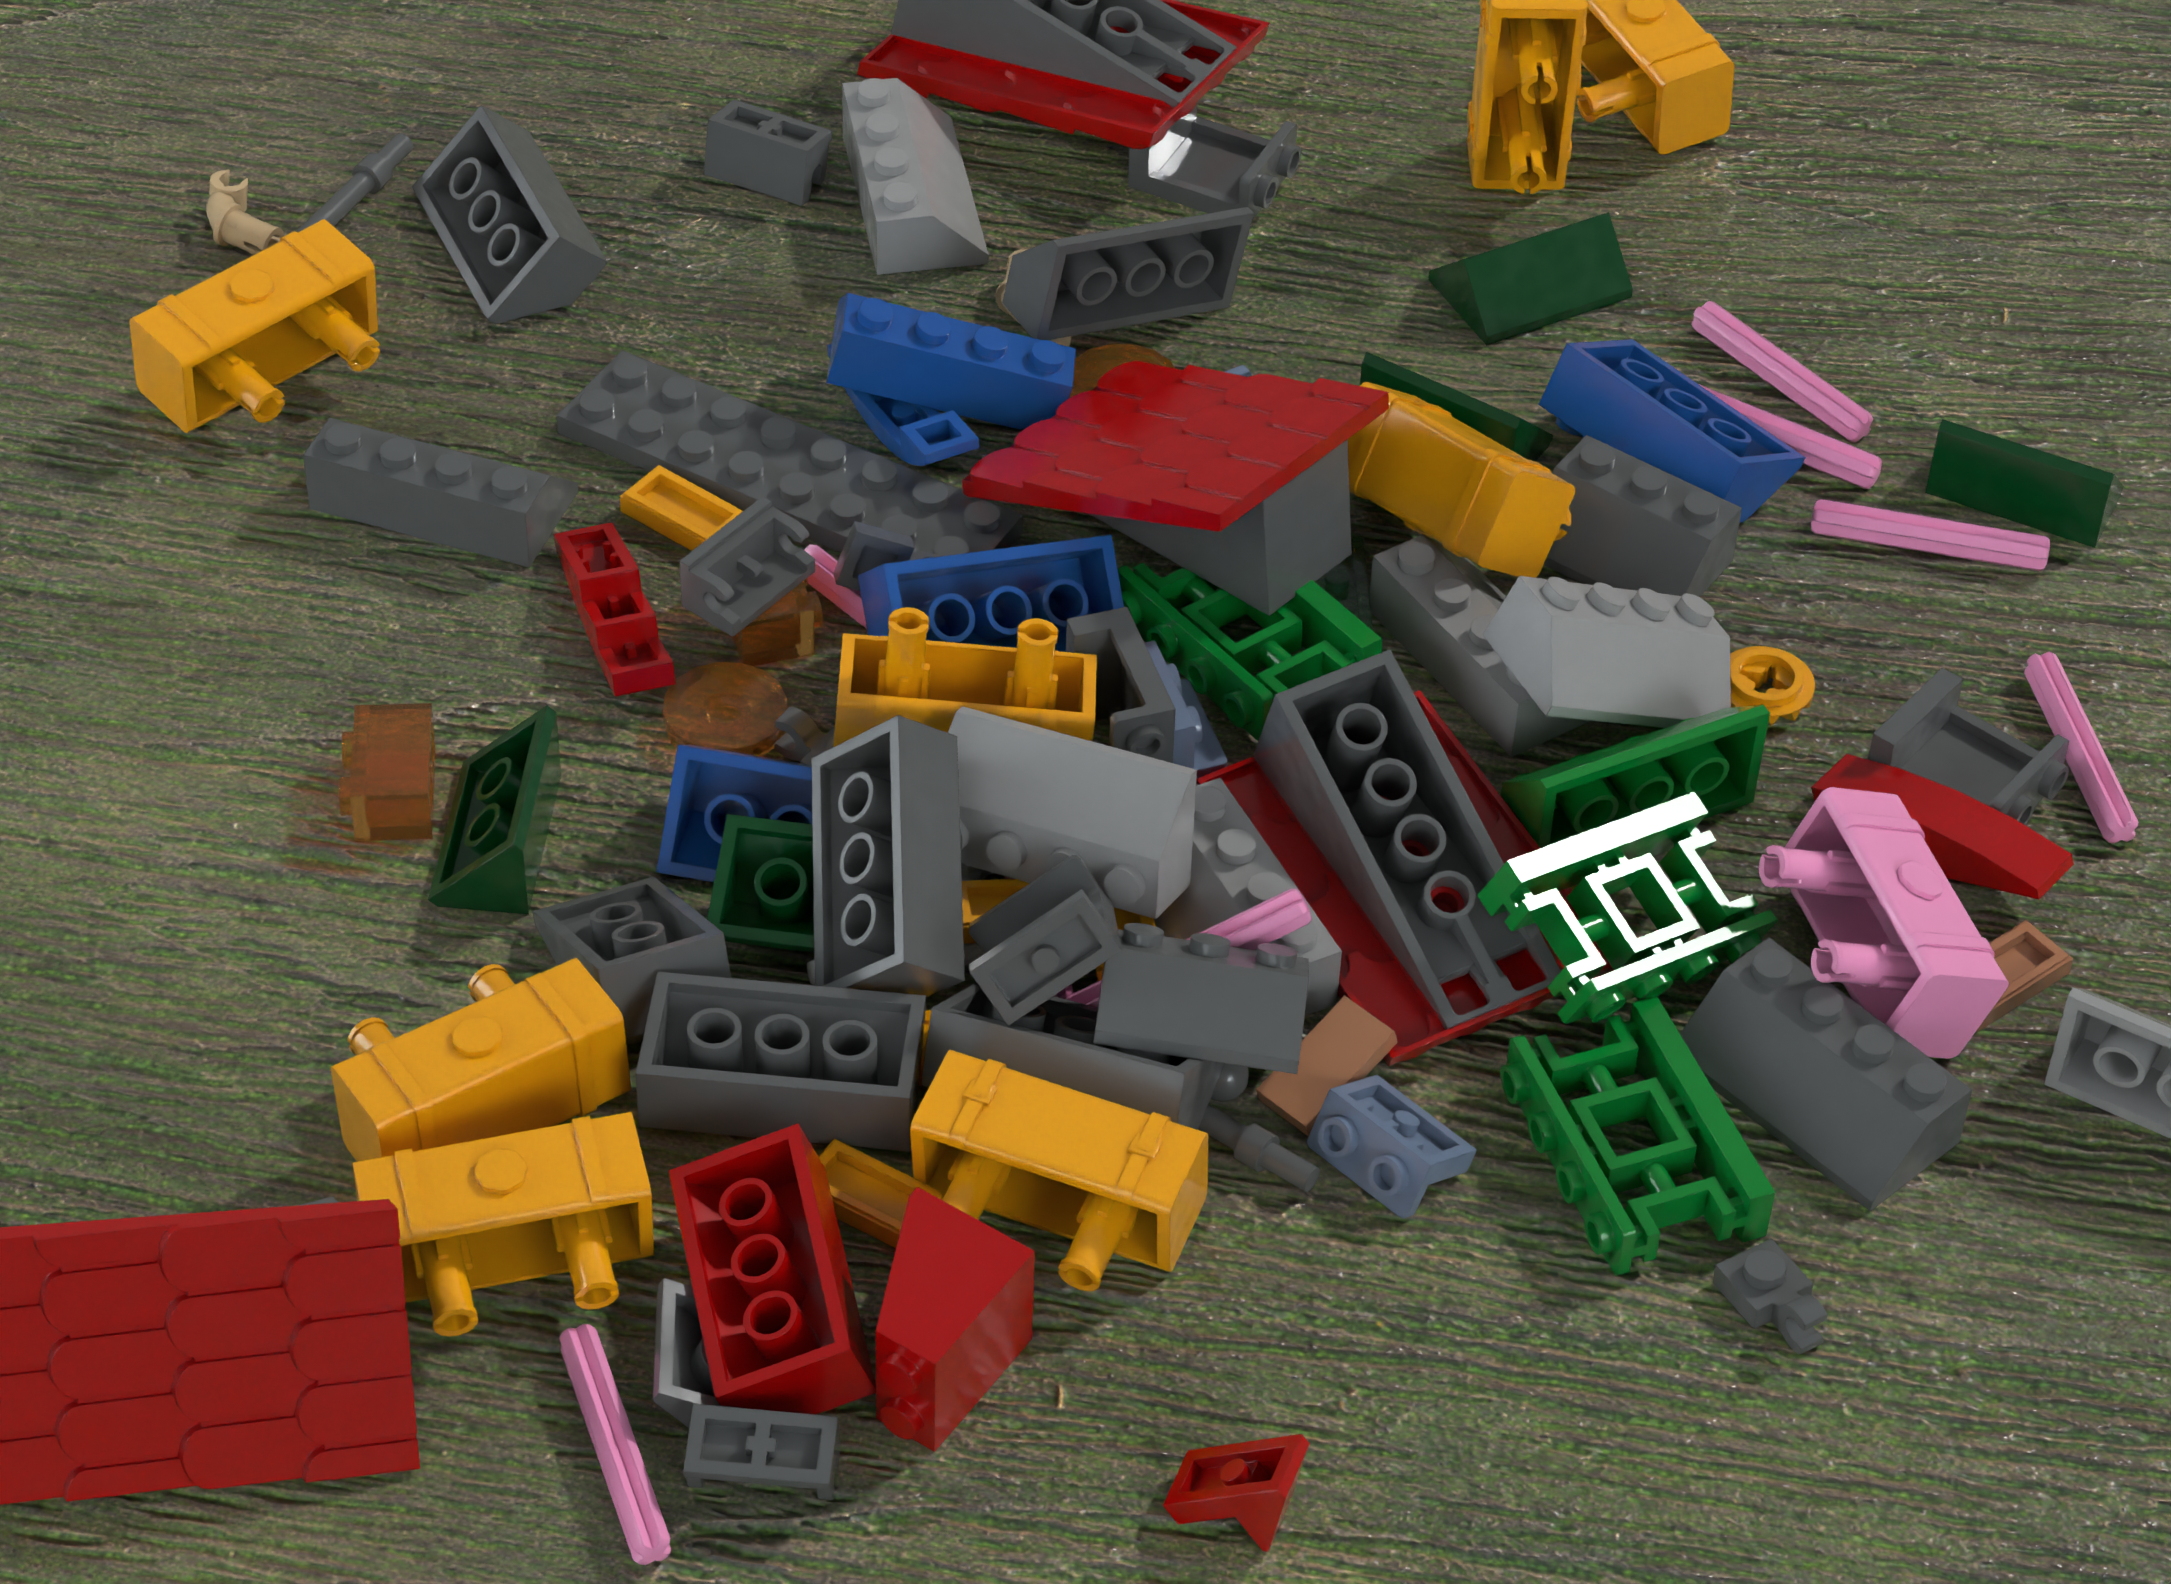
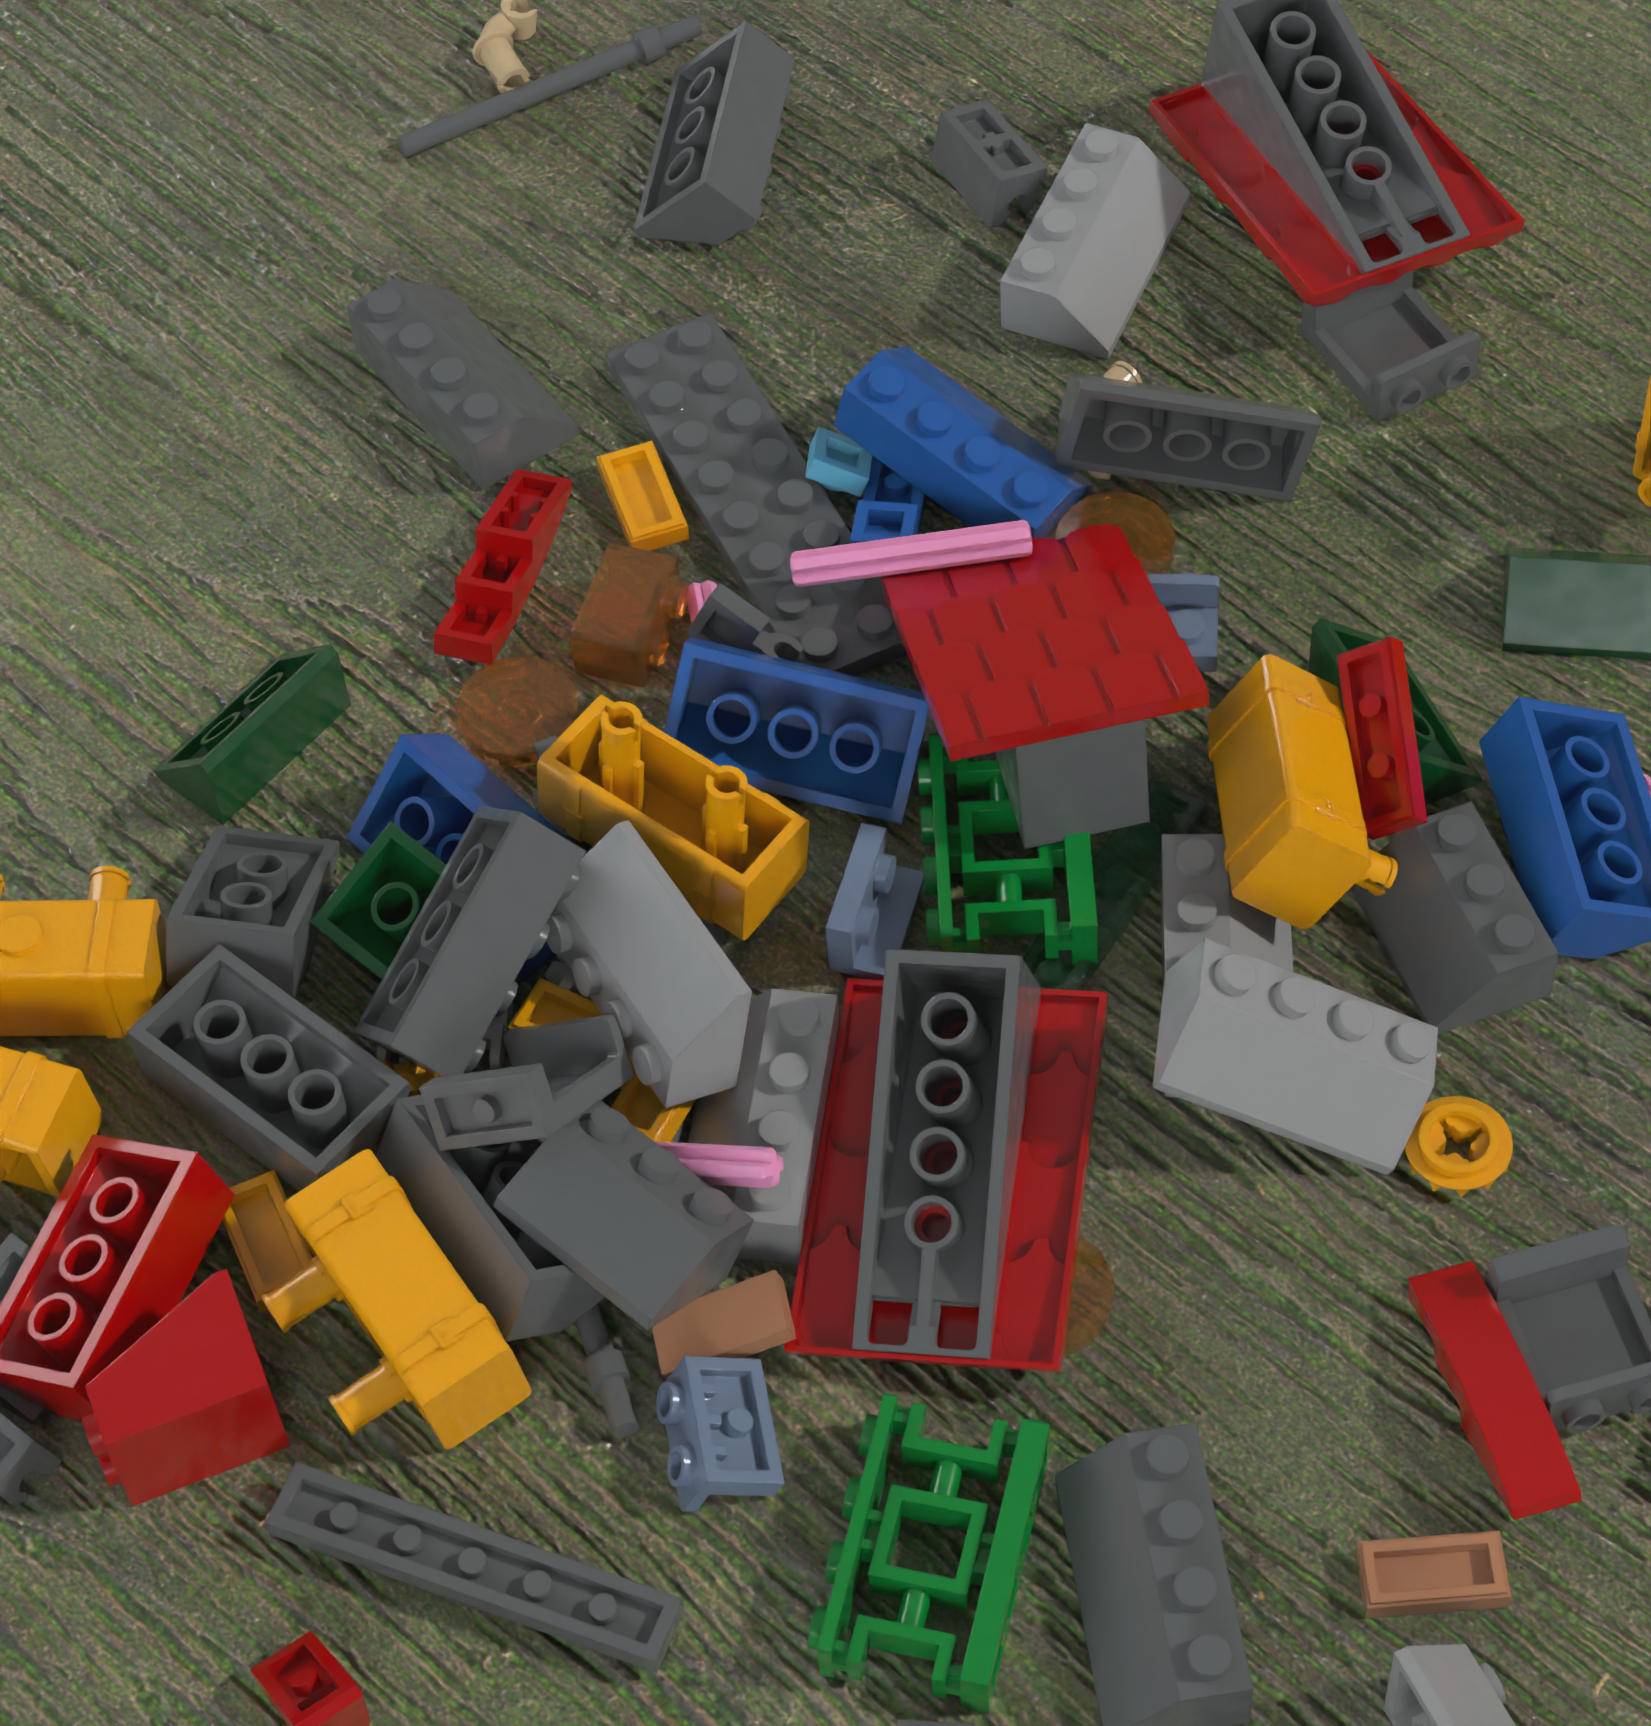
camera: 40 degrees right, 10 degrees up
(257, 328) = (417, 164): light orange piece -> none
(390, 772) = (206, 639): clear orange brick -> none
(745, 567) = (599, 584): dark grey hinge -> none
(843, 415) = (838, 462): none -> medium azure plate
(985, 444) = (911, 553): none -> bright pink axle
(1126, 683) = (796, 924): dark grey panel -> none
(1279, 1334) = (476, 1567): none -> dark grey plate
(1483, 400) = (1382, 737): none -> red tile
(1610, 861) = (1089, 1272): green fence -> none
(1704, 755) = (1222, 1193): green slope -> none
(1887, 919) = (1327, 1468): bright pink piece -> none

